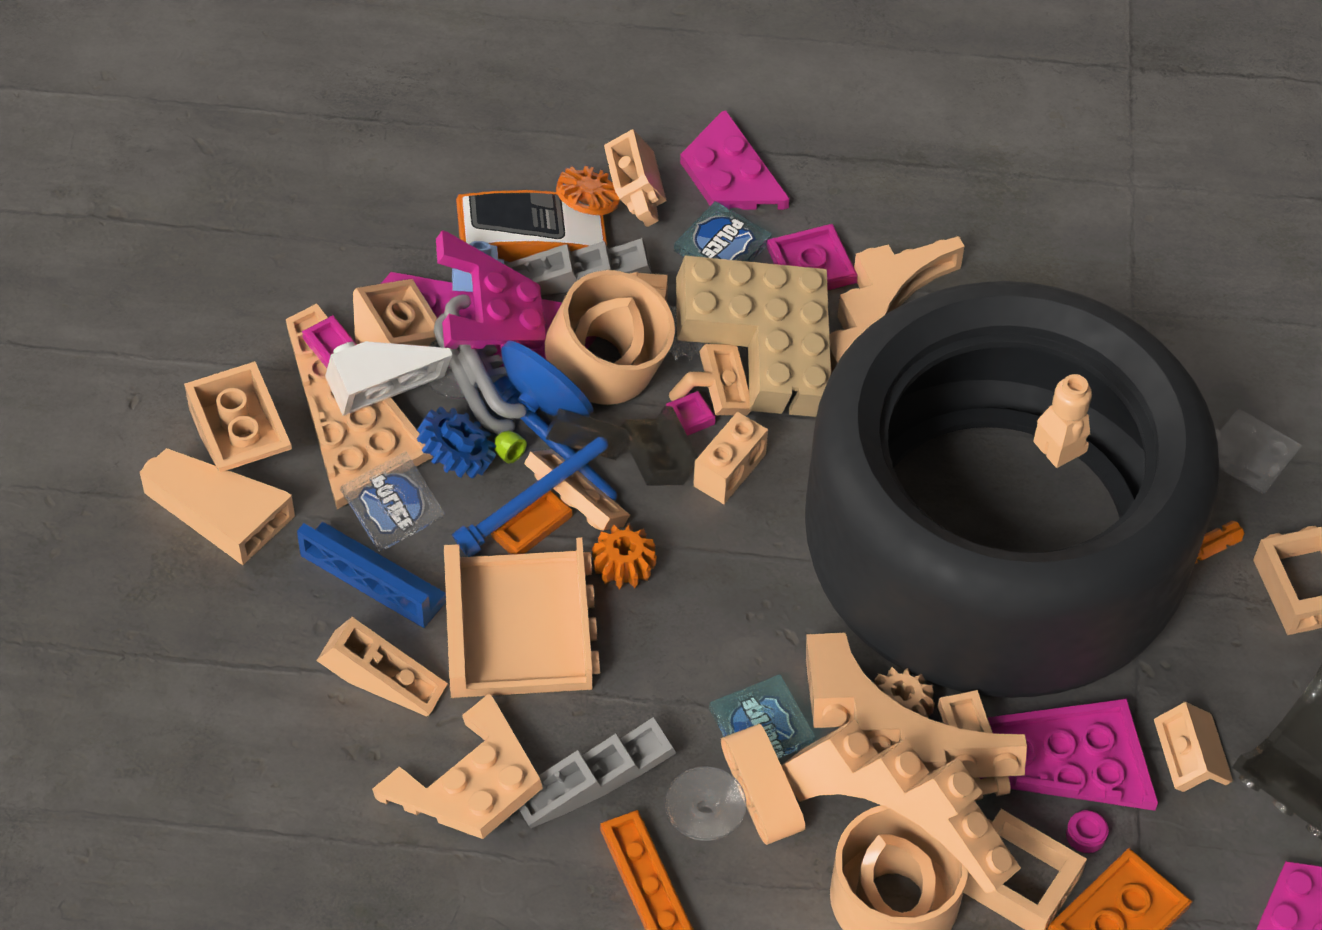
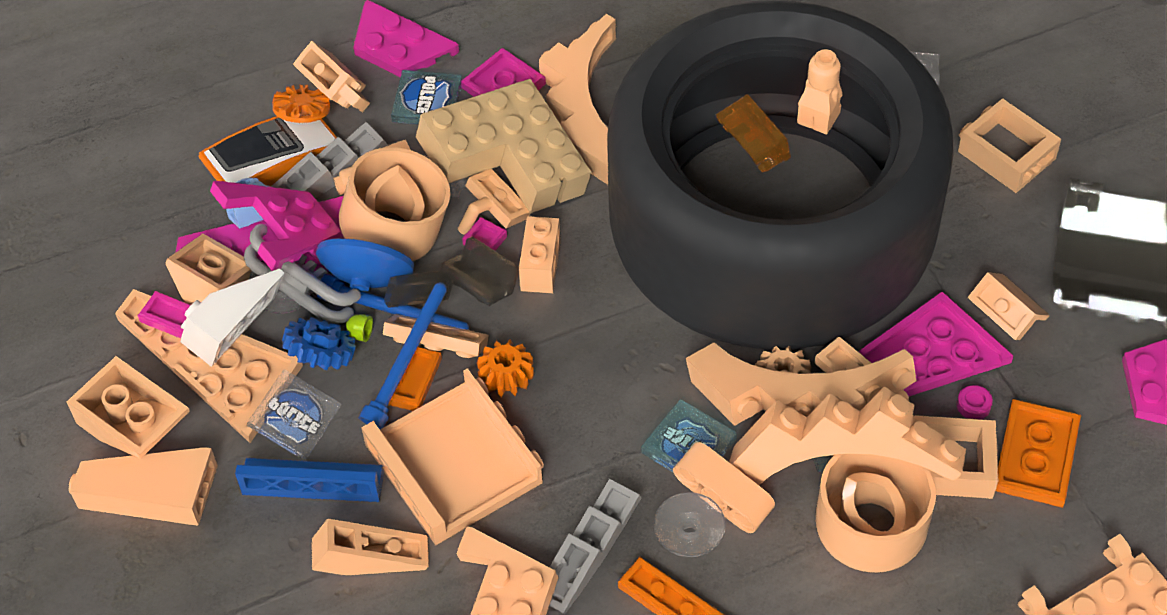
camera: 25 degrees left, 0 degrees up
(973, 431) = (755, 133): none -> clear orange hinge

